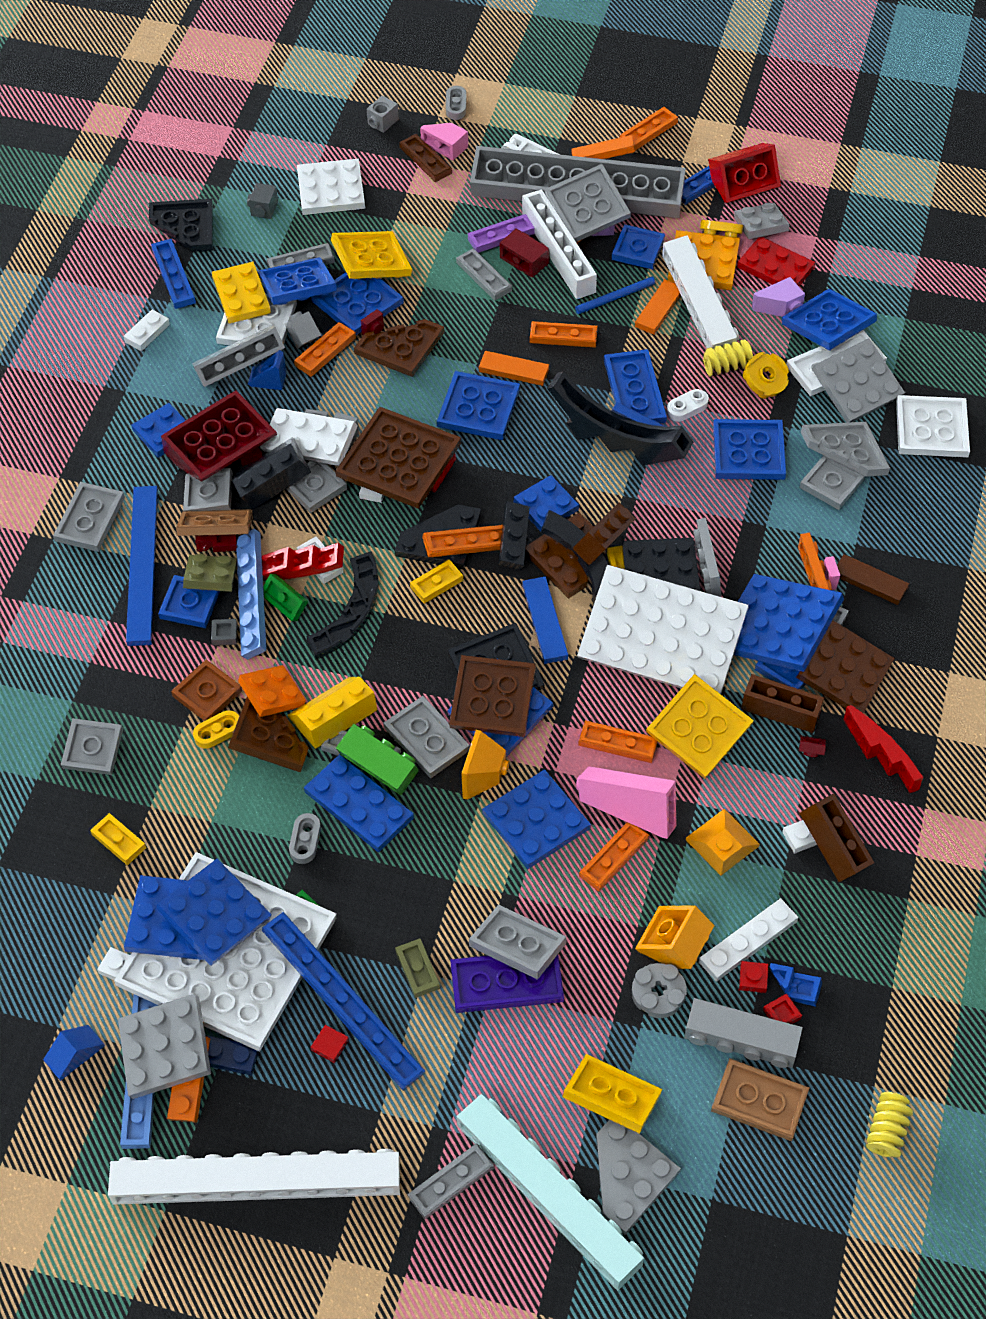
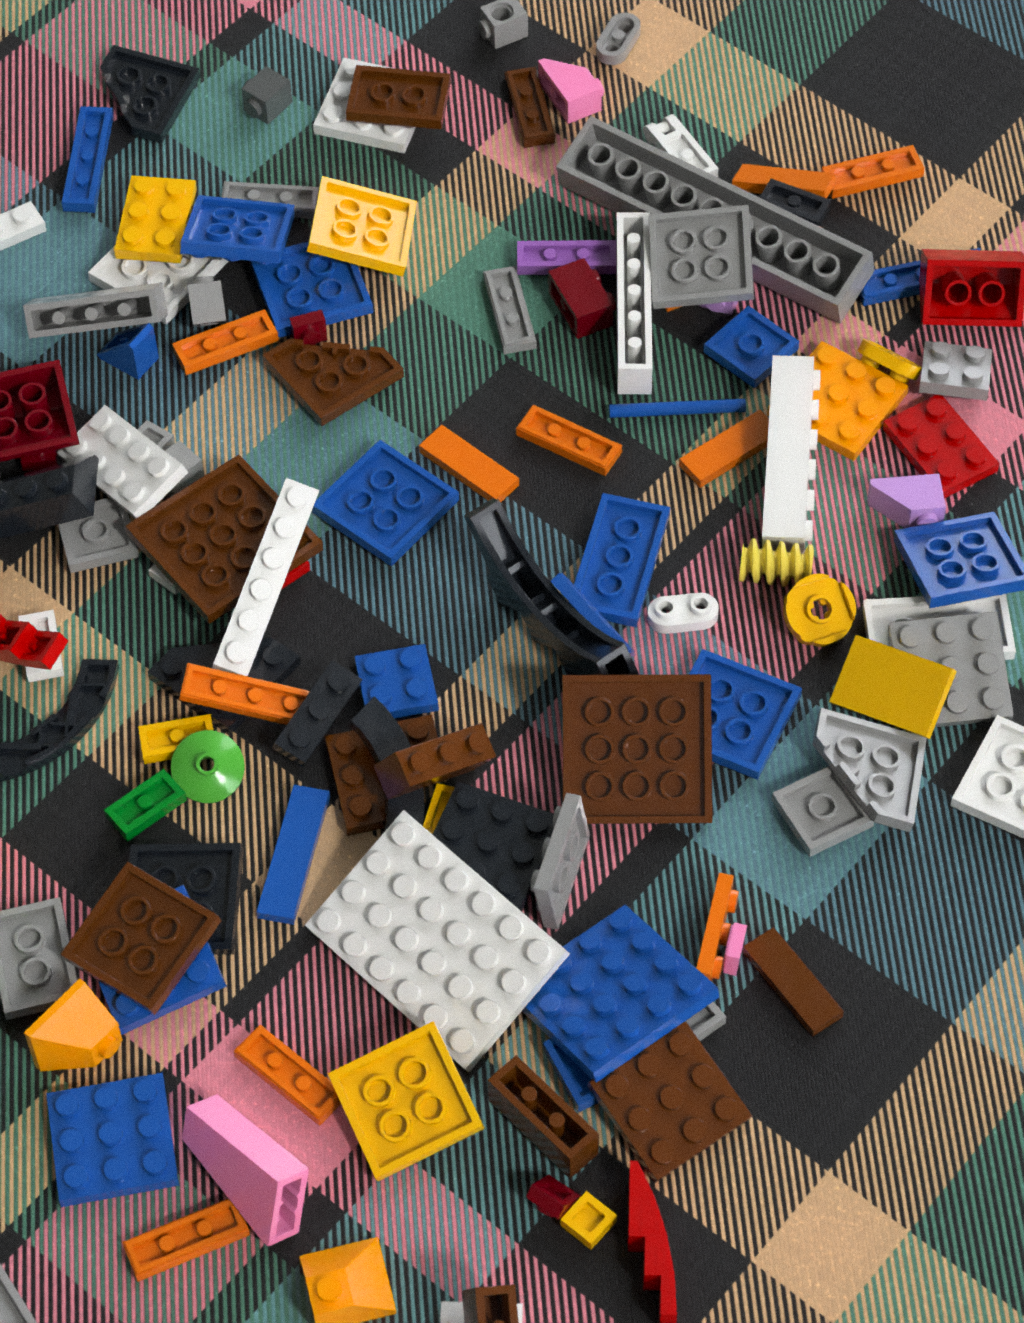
camera: 25 degrees right, 0 degrees up
(349, 174) = (398, 97): none -> reddish brown plate
(440, 625) = (145, 805): none -> green plate
(441, 468) = (266, 578): none -> white plate
(457, 597) = (208, 785): none -> bright green dish
(626, 155) = (797, 201): none -> black plate
(715, 482) = (639, 747): none -> reddish brown plate
(834, 399) = (893, 686): none -> yellow tile
(838, 750) = (588, 1220): none -> yellow plate

